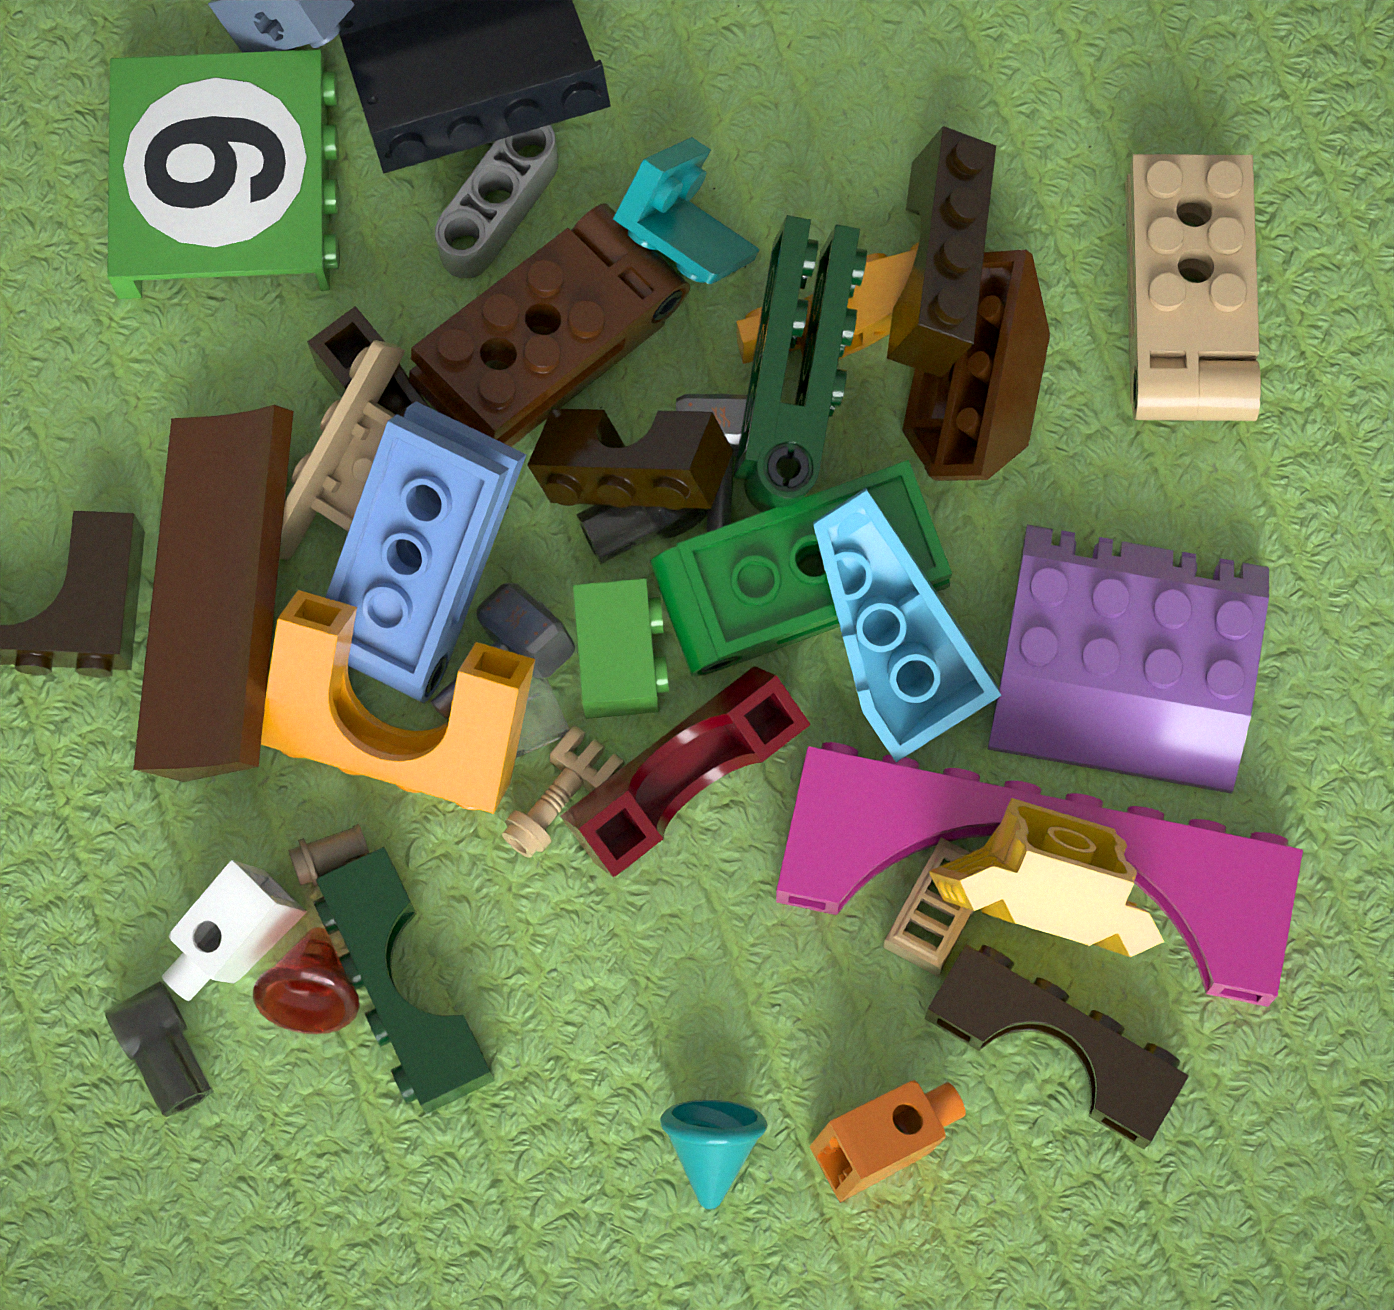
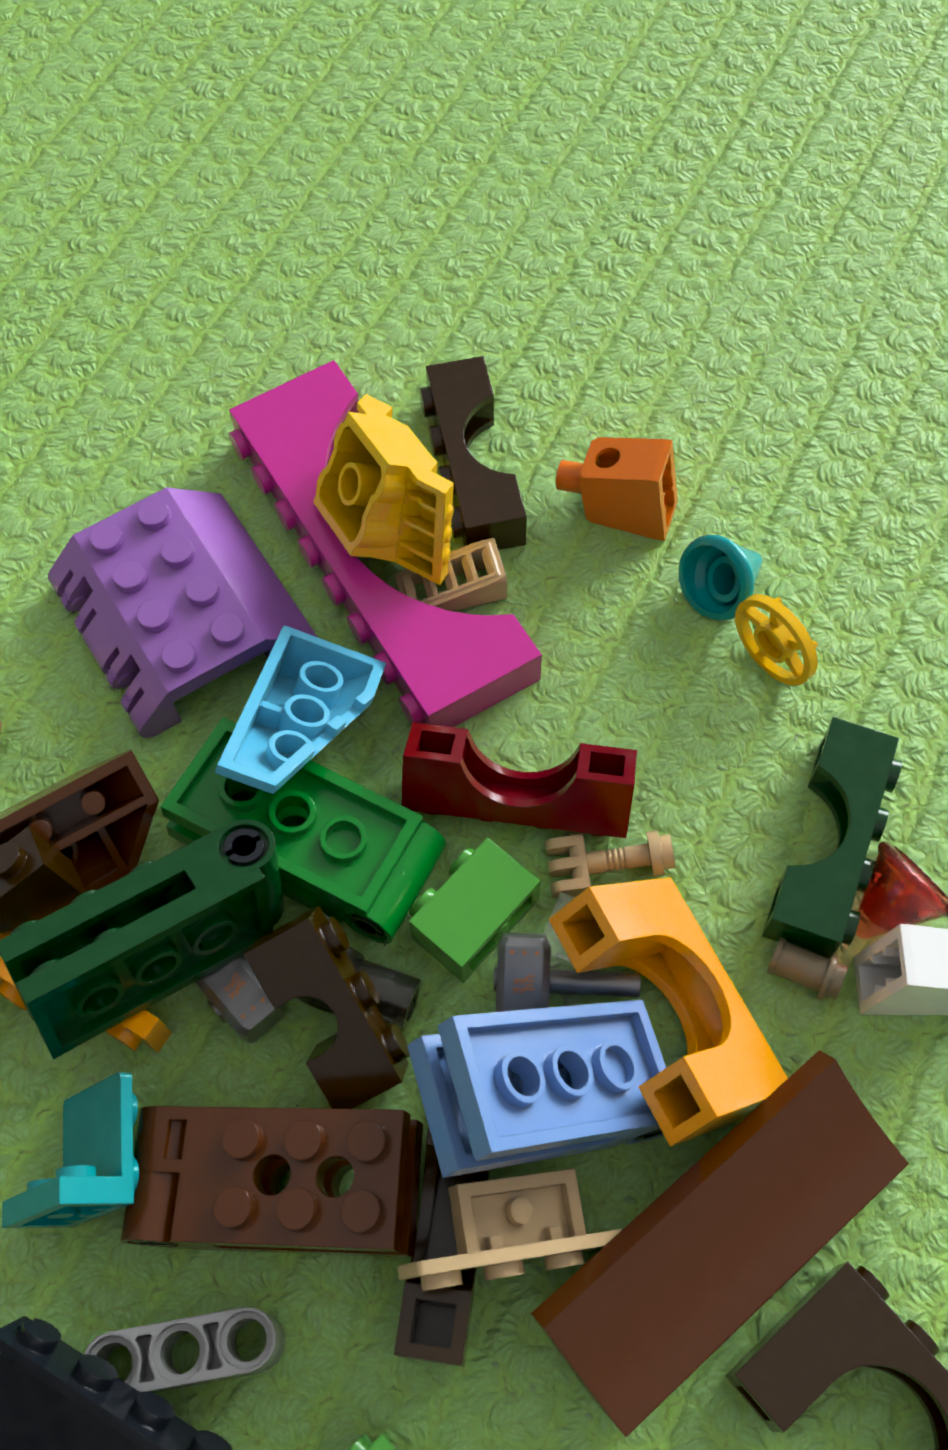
camera: 135 degrees left, 10 degrees down
(603, 1104) = (776, 639): none -> yellow wheel

